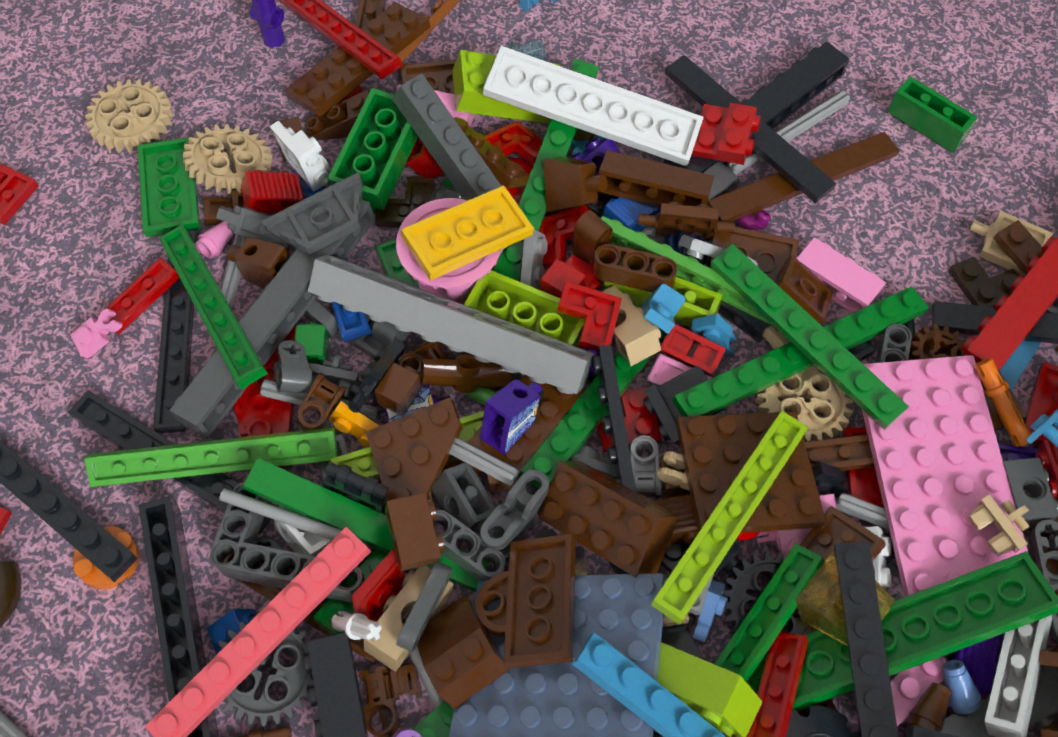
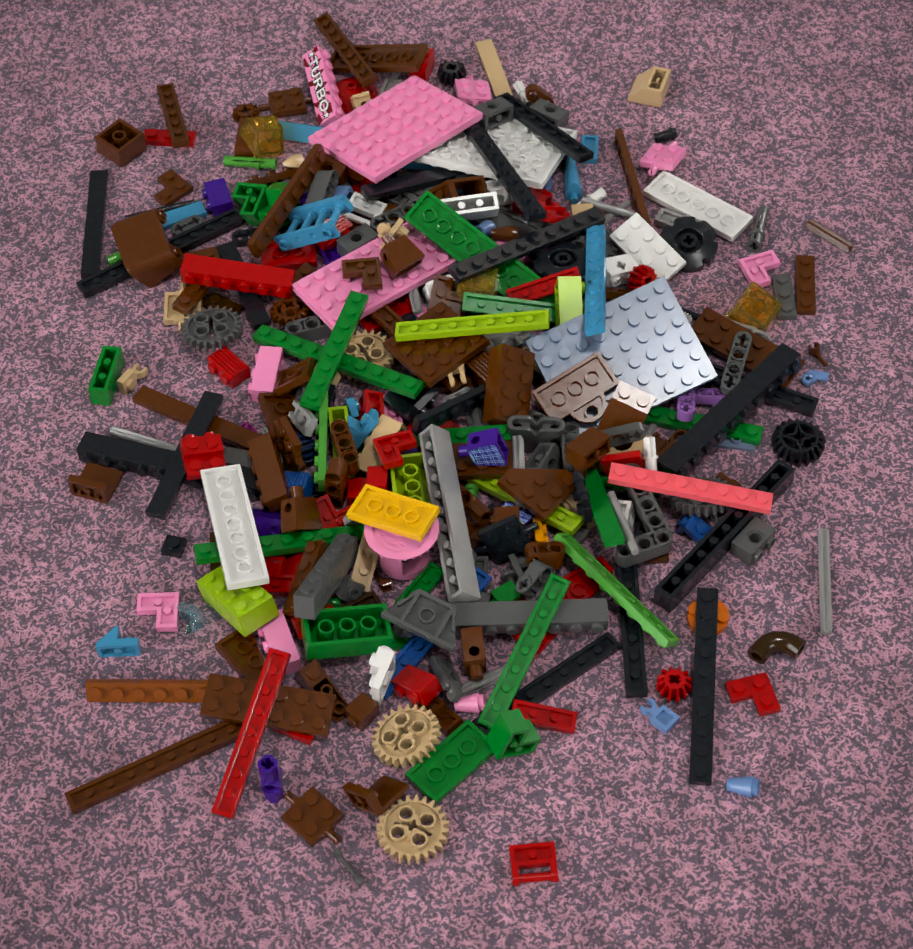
camera: 120 degrees left, 10 degrees down
(31, 409) = (661, 718): none -> medium blue plate
(53, 449) = (674, 684): none -> red gear
(93, 333) = (590, 721): bright pink plate -> none
(131, 238) = (512, 735): none -> green brick
(137, 676) = (756, 531): none -> dark grey brick
(169, 56) = (338, 854): none -> dark grey hinge
(184, 94) = (377, 797): none -> reddish brown bracket
(220, 51) = (312, 817): none -> reddish brown plate
(560, 42) = (162, 605): none -> bright pink plate
(636, 82) = (174, 546): none -> black plate
(768, 48) = (95, 482): none -> reddish brown bracket
(876, 243) = (228, 367): none -> red brick
(915, 138) = (129, 378): none -> tan plate
(940, 453) = (366, 268): none -> reddish brown plate
(945, 503) = (400, 254): none -> reddish brown torso
(948, 244) = (197, 328): none -> dark grey gear
(1000, 396) = (308, 267): orange pin -> none

